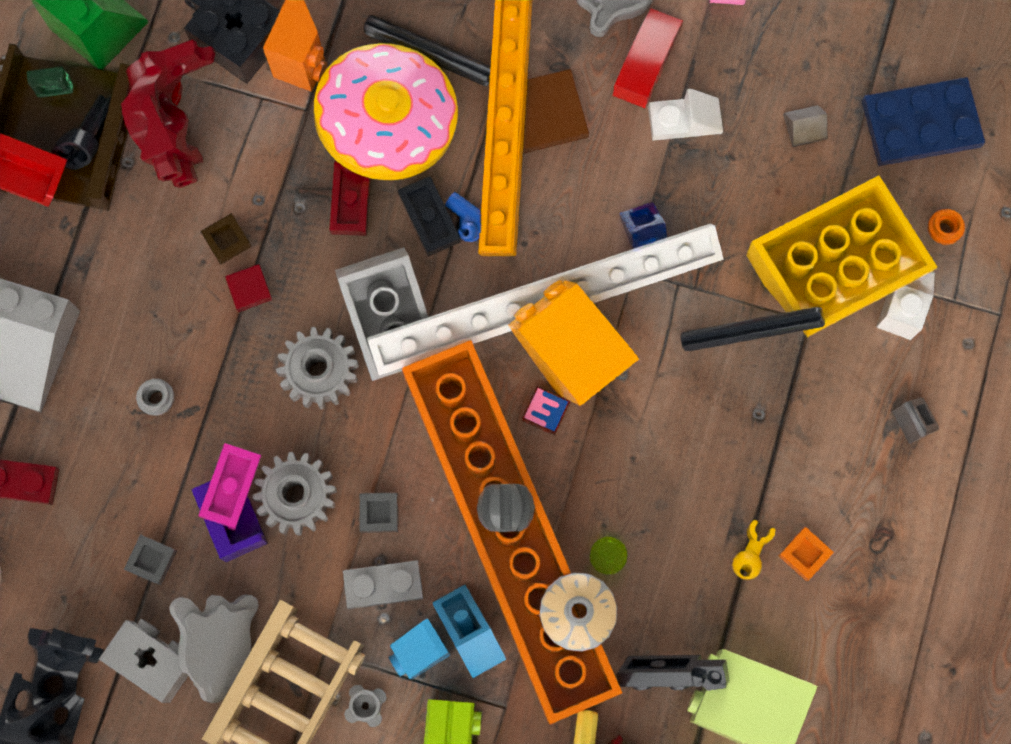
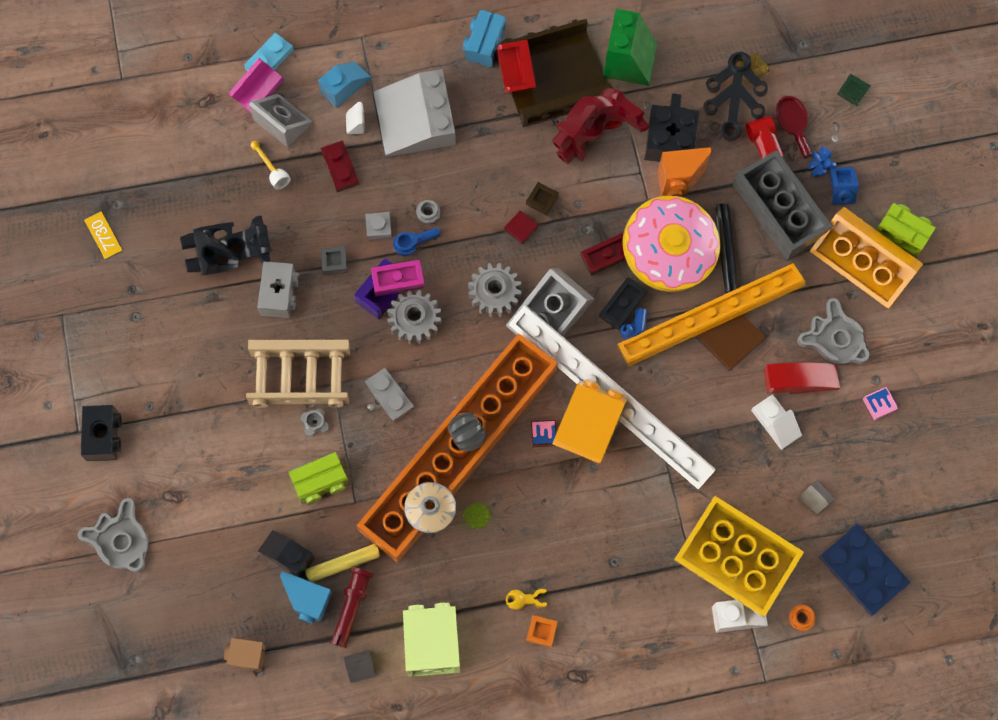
camera: 60 degrees right, 5 degrees down
(50, 82) = (577, 53): clear green tile -> none
(84, 137) = (549, 89): black piece -> none
(135, 474) = (378, 225): none -> light grey plate
(183, 449) = (406, 243): none -> blue plate
(214, 641) = (306, 317): light grey tile -> none
(378, 512) = (429, 369): dark grey plate -> none
(418, 650) = (362, 433): dark azure slope -> none
(469, 631) = (387, 456): dark azure slope -> none
(643, 225) = (692, 431): clear blue slope -> none
(672, 671) = (425, 583): black hinge -> none
(753, 329) = (662, 527): black axle -> none
(915, 419) = (665, 660): flat silver slope -> none

